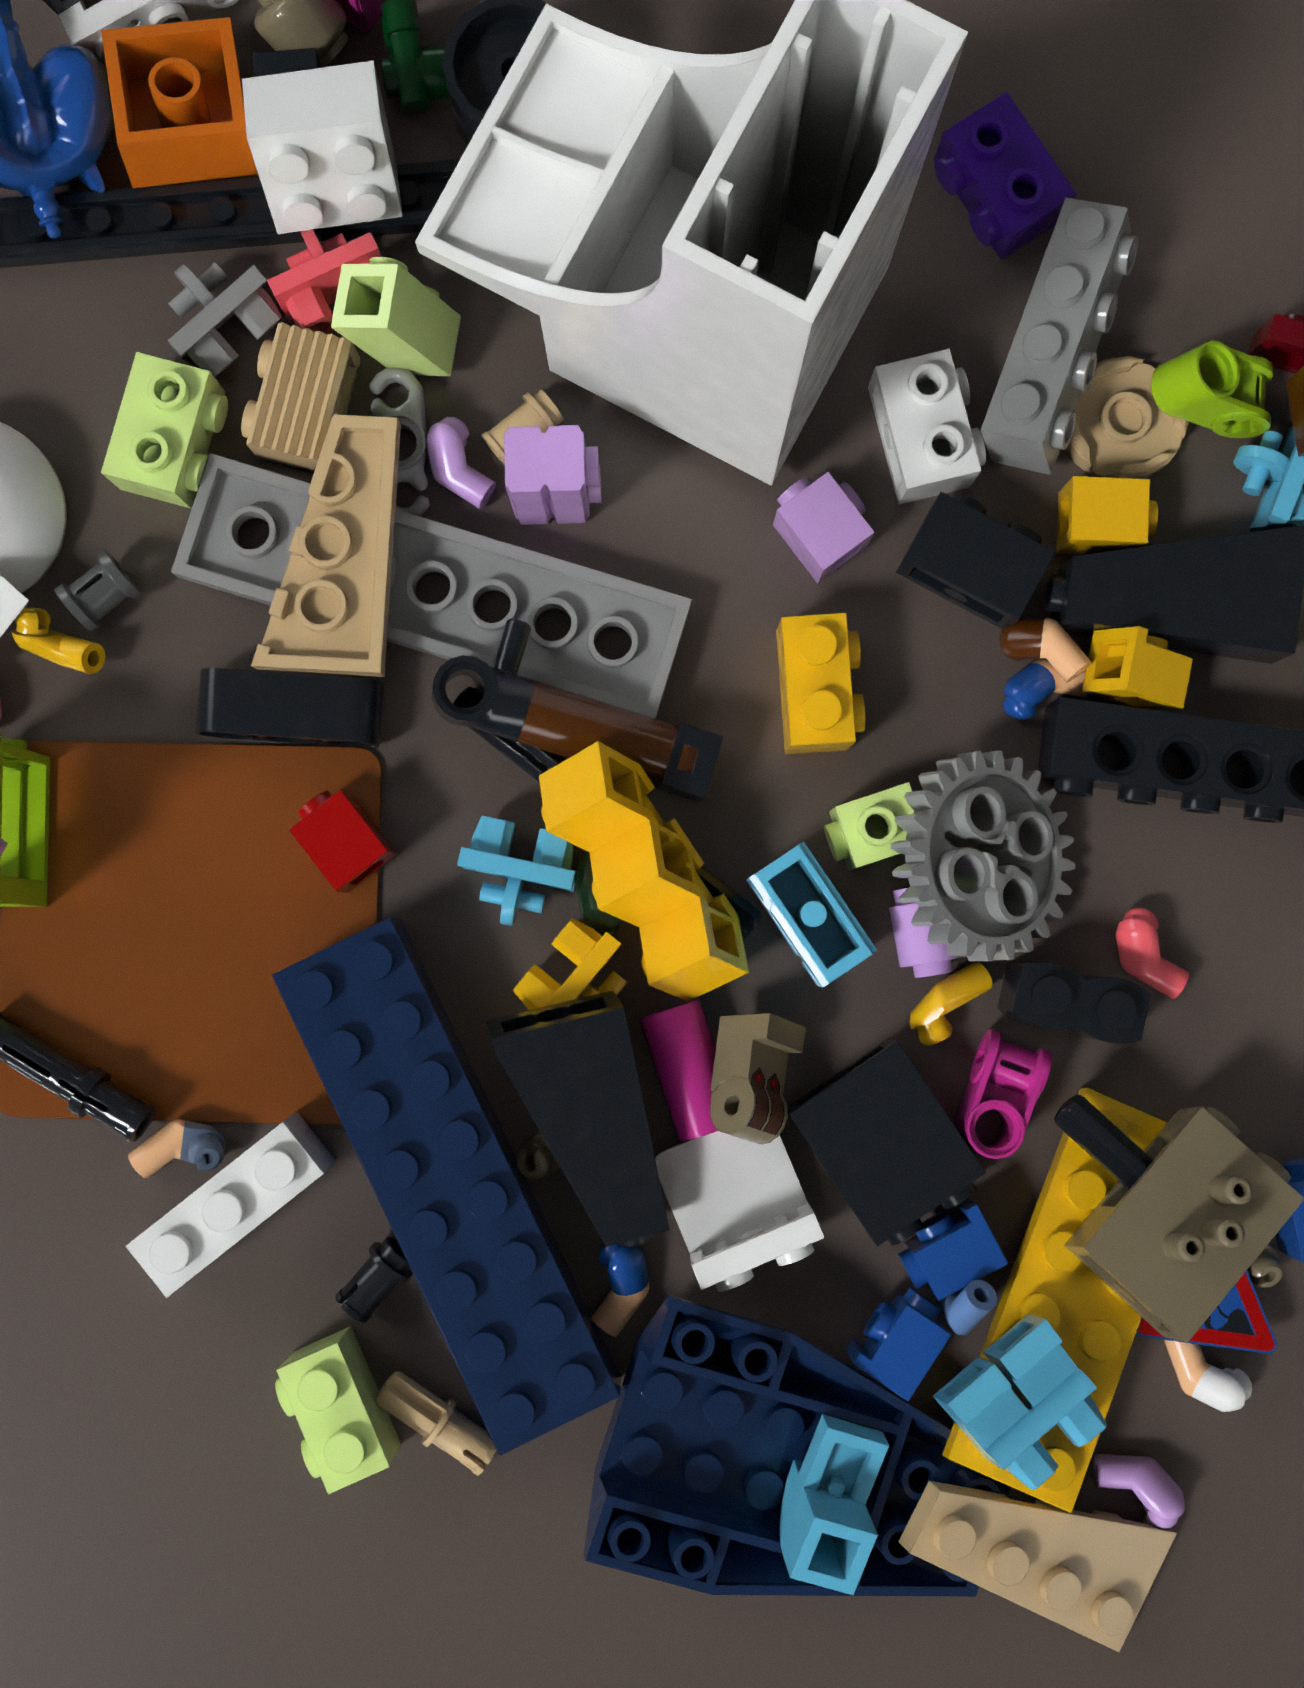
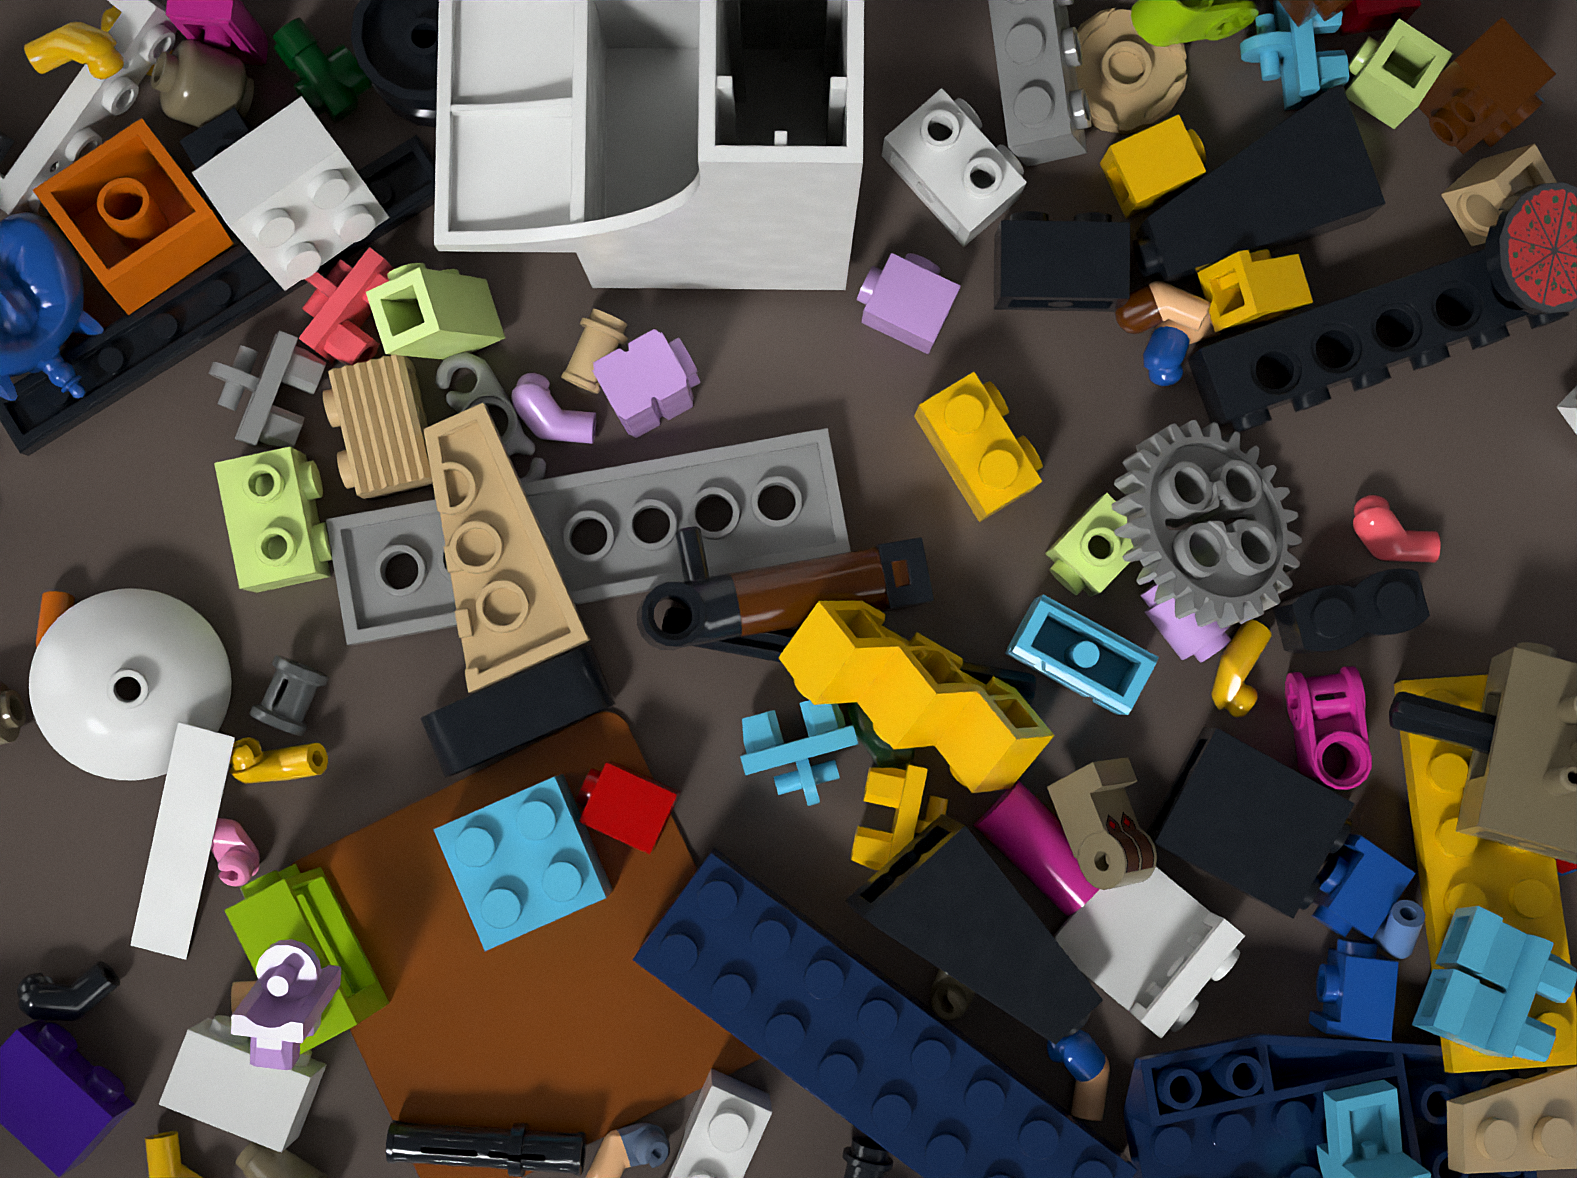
camera: 30 degrees left, 0 degrees up
(224, 840) = (523, 862): none -> medium azure brick

